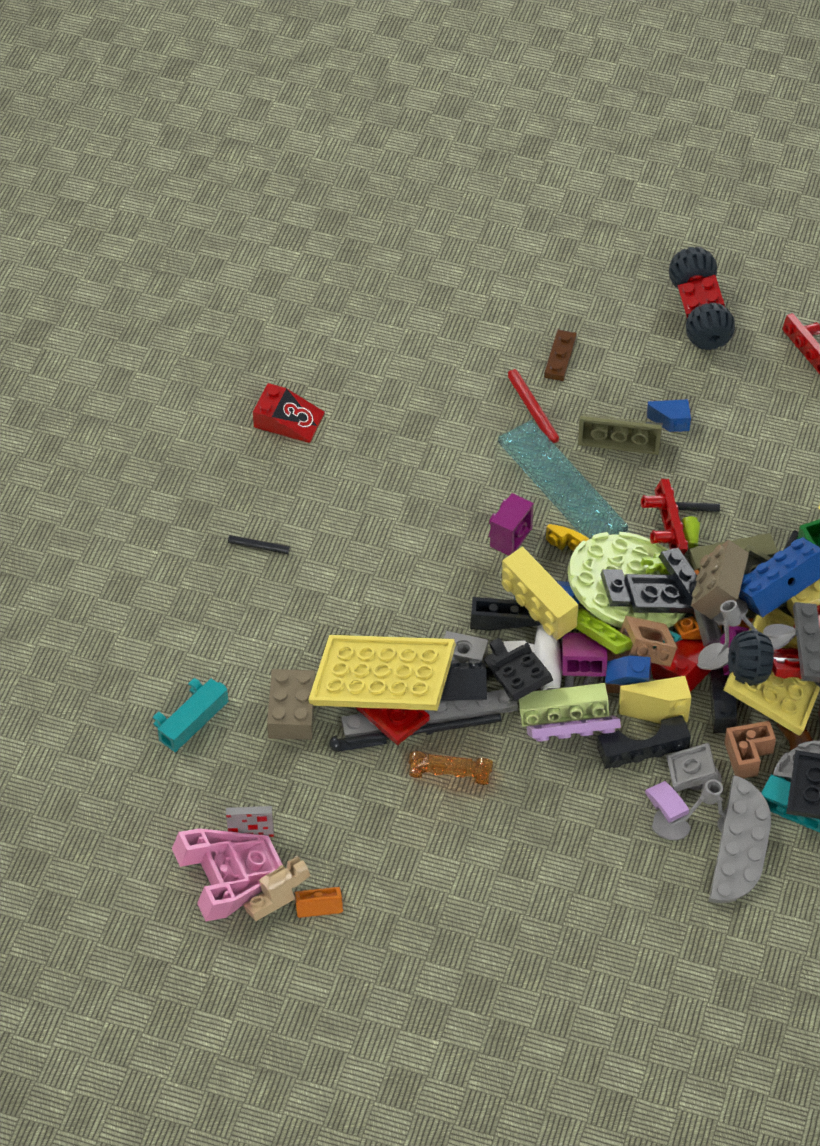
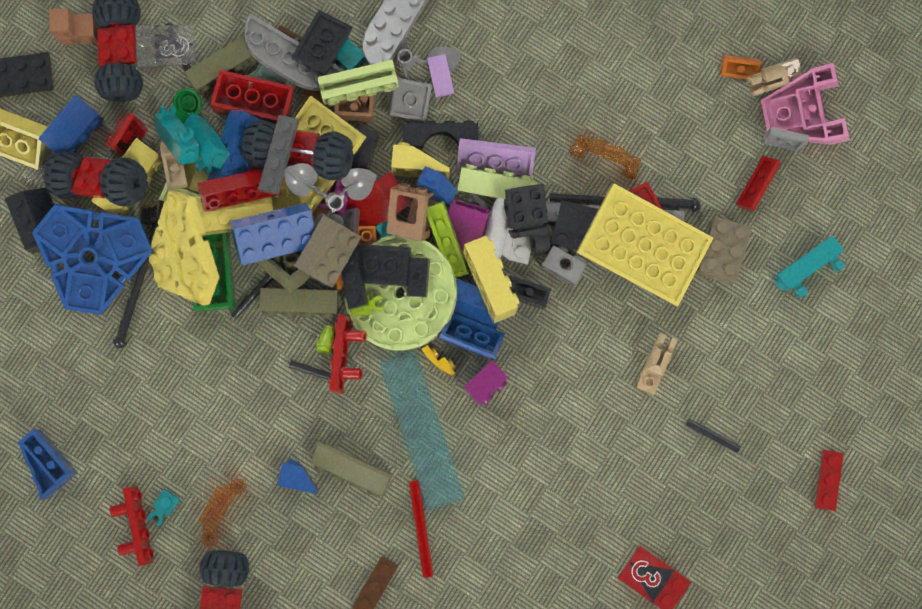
camera: 165 degrees left, 30 degrees up
(127, 534) = (829, 480): none -> red plate
(268, 778) = (758, 183): none -> red plate
(336, 586) = (656, 365): none -> tan plate
(550, 551) = (472, 336): none -> blue slope
(739, 375) = (217, 509): none -> clear orange plate
(754, 749) = (358, 82): none -> yellowish green brick
(791, 370) = (165, 504): none -> teal plate

